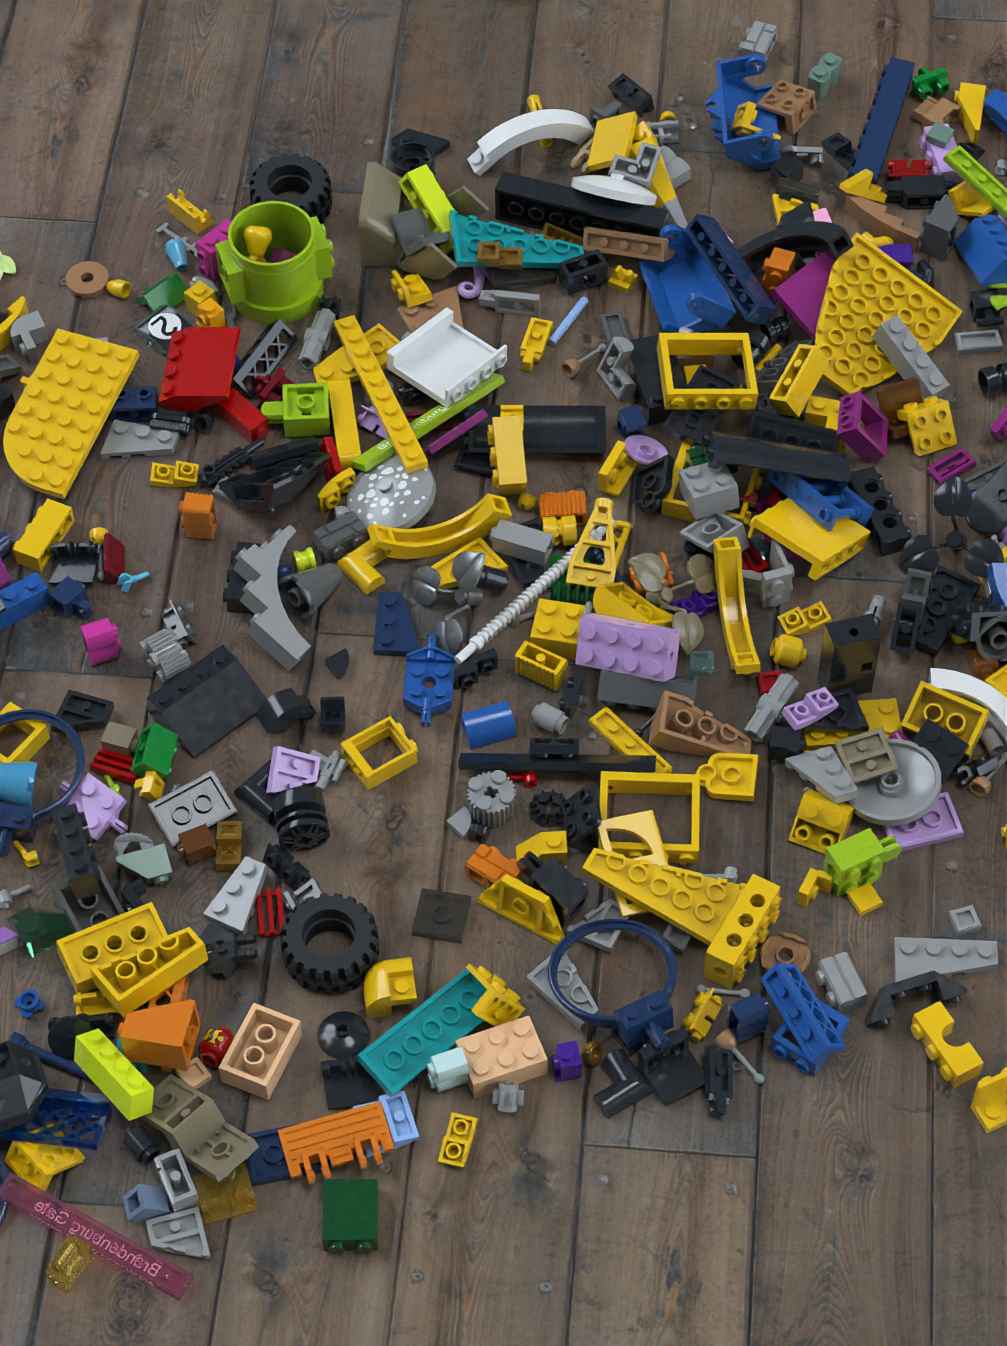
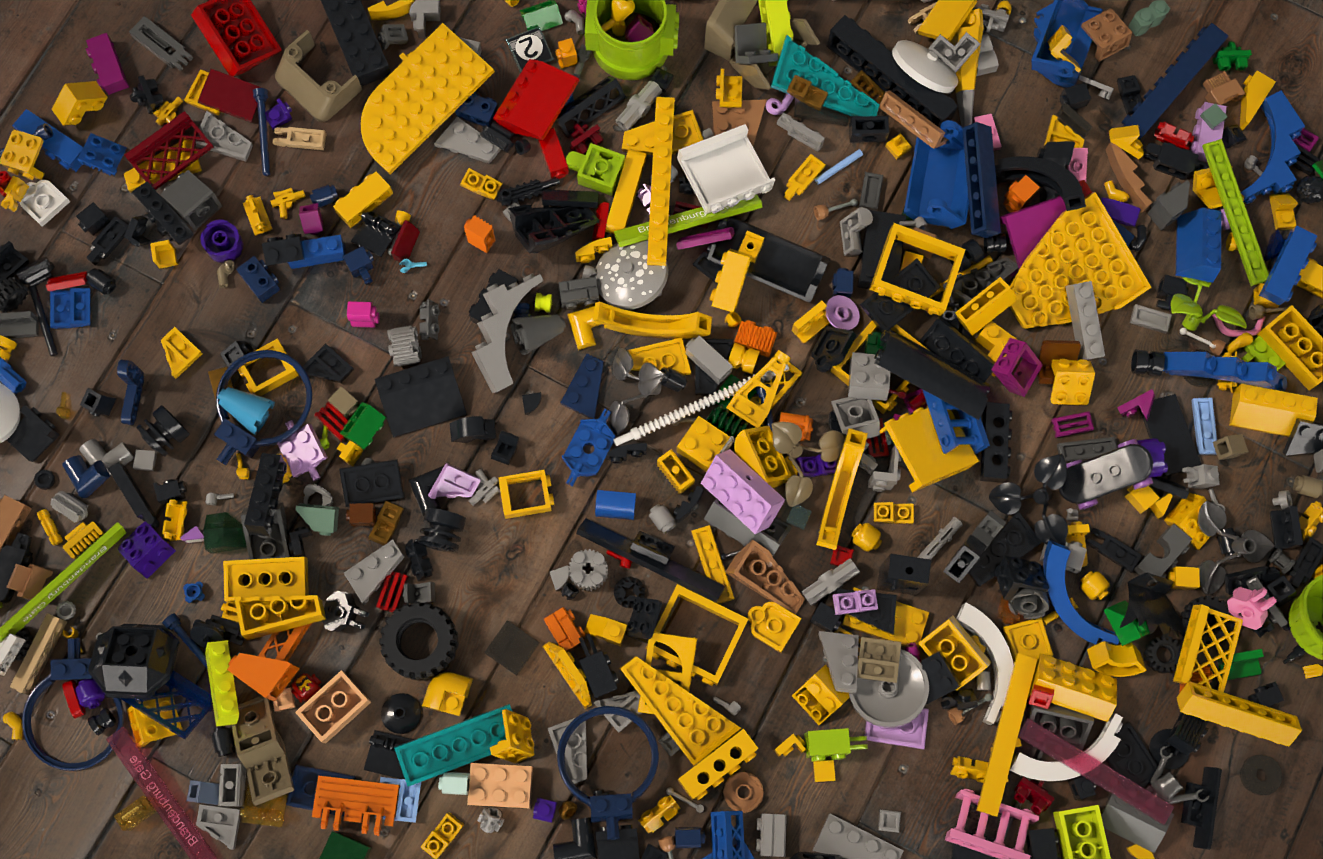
camera: 20 degrees right, 20 degrees up
(197, 294) = (565, 30): yellow brick -> none

